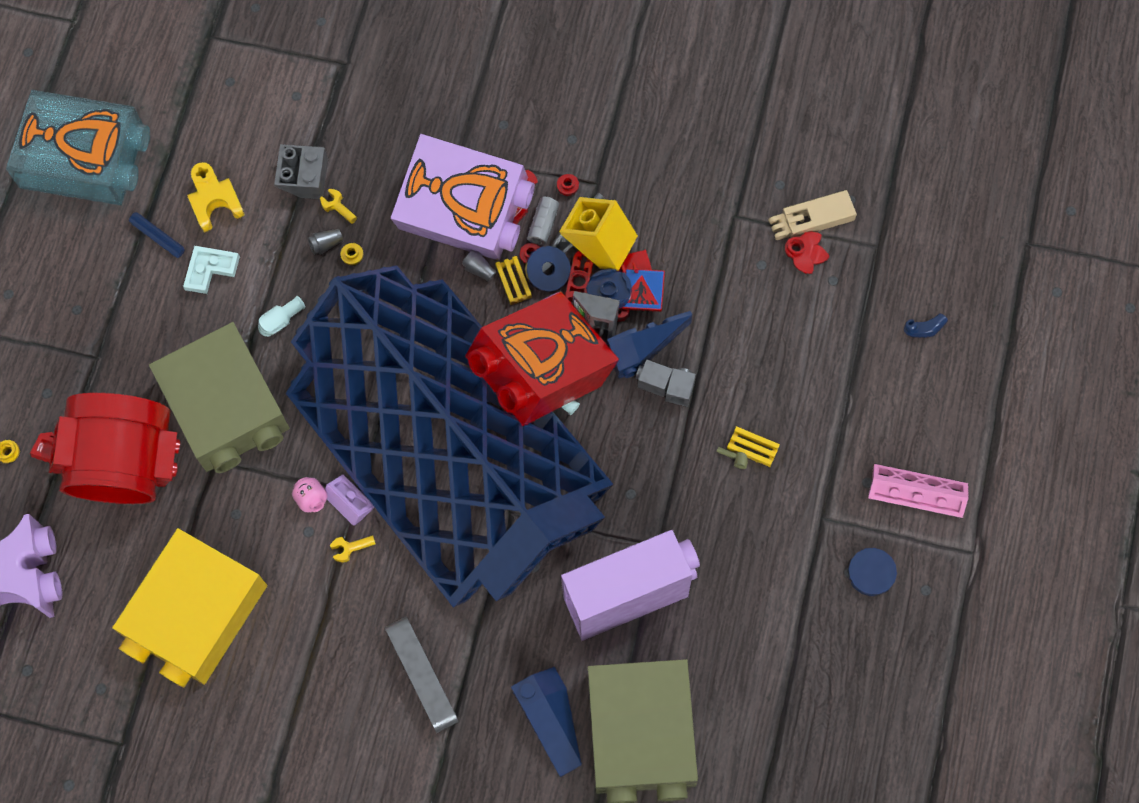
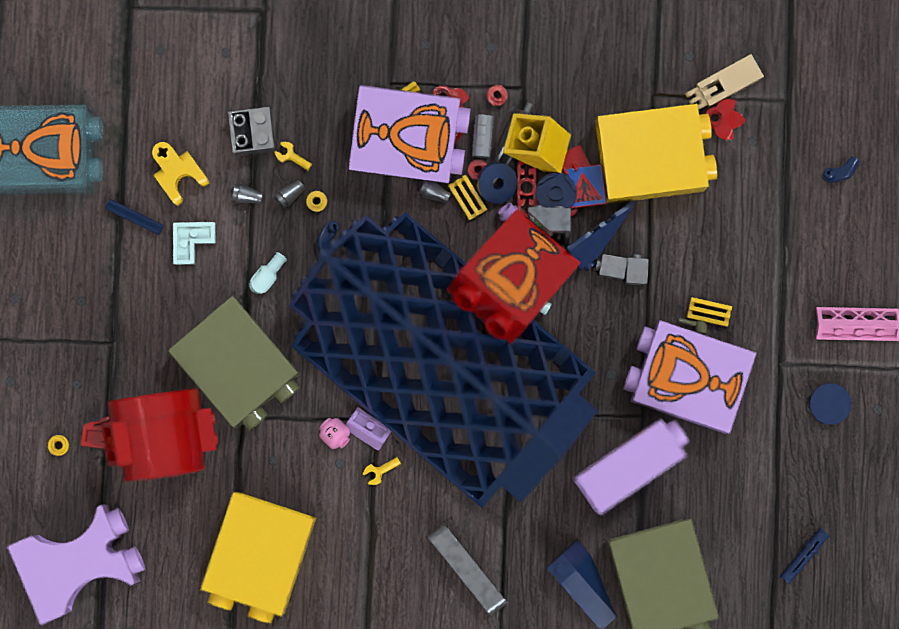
camera: 10 degrees left, 15 degrees up
(278, 233) = (245, 194): none -> flat silver cone
(717, 505) = (690, 376): none -> lavender brick
(724, 267) = (654, 153): none -> yellow brick
(836, 719) = (804, 556): none -> dark blue pin

